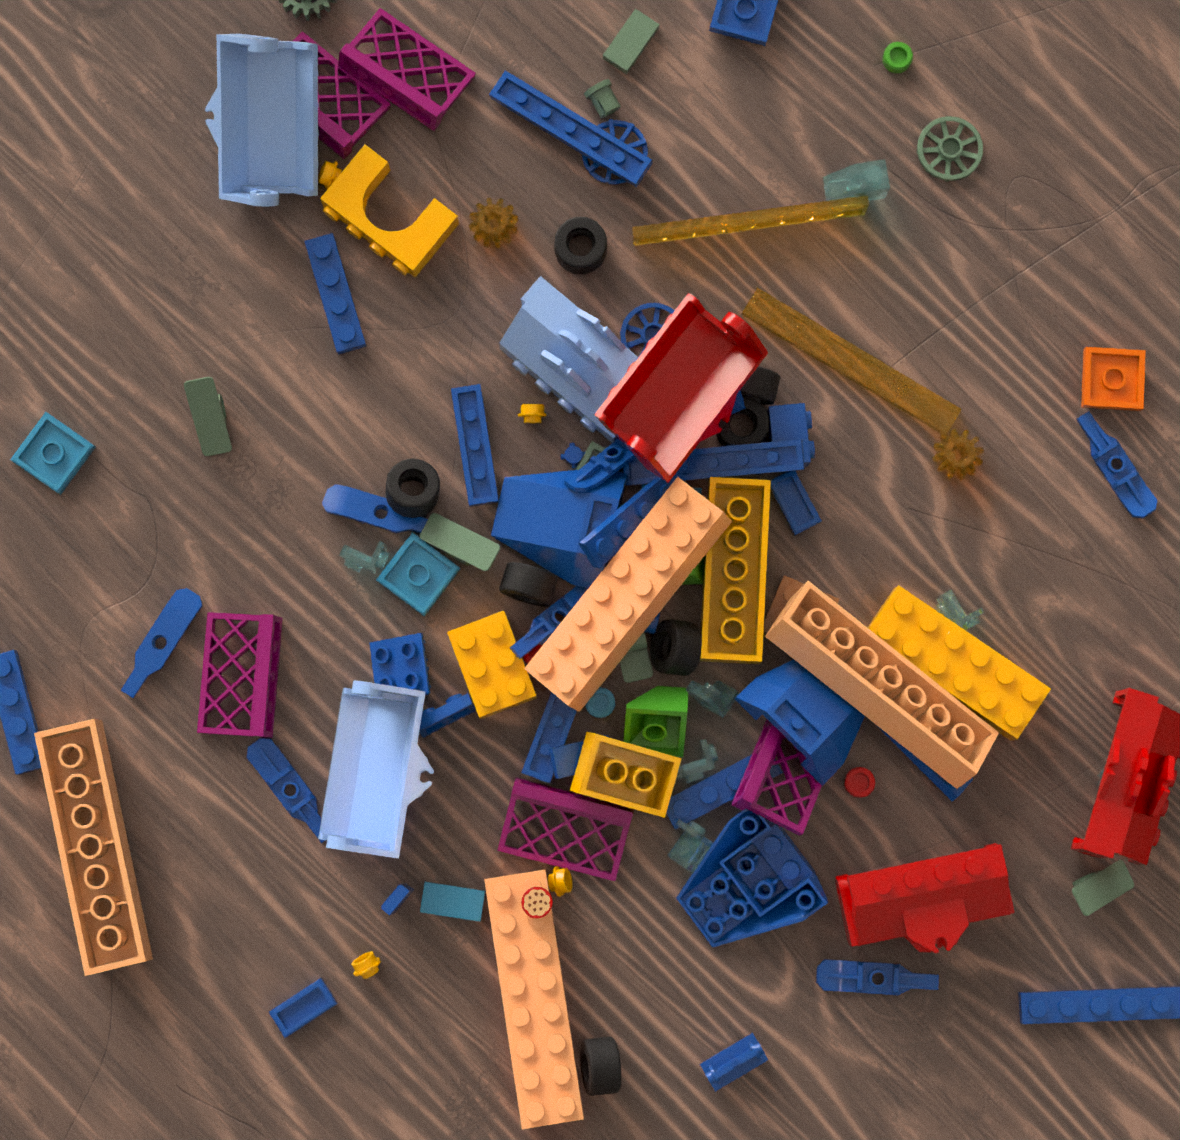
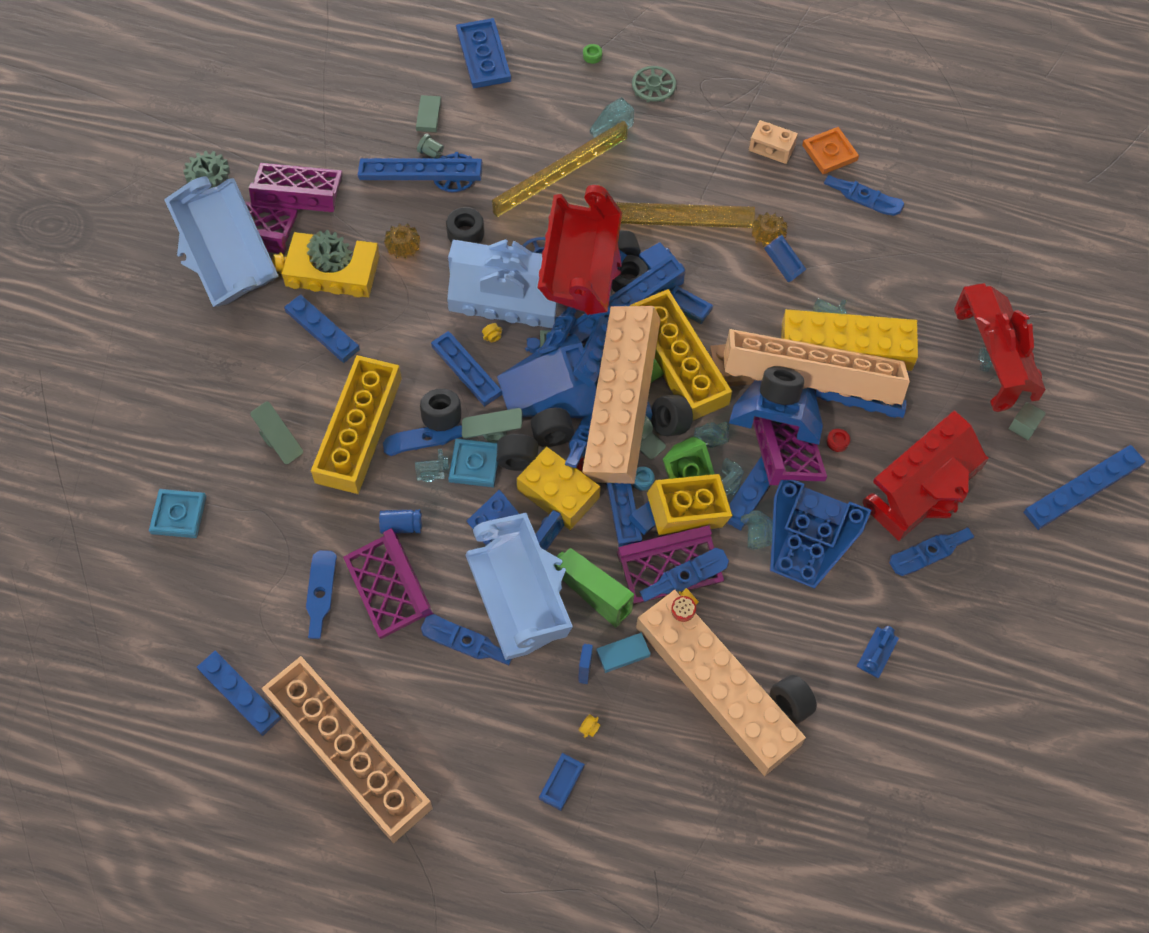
camera: 30 degrees left, 20 degrees down
(292, 606) = (400, 521): none -> blue piece
(306, 454) = (356, 424): none -> yellow brick
(383, 191) = (319, 249): none -> sand green gear
(460, 807) = (596, 587): none -> bright green slope
(468, 595) = (516, 451): none -> black tyre
(591, 853) = (697, 568): none -> blue piece
(806, 707) = (781, 385): none -> black tyre
(949, 507) = (785, 258): none -> blue tile
(1046, 326) = (773, 142): none -> light nougat brick

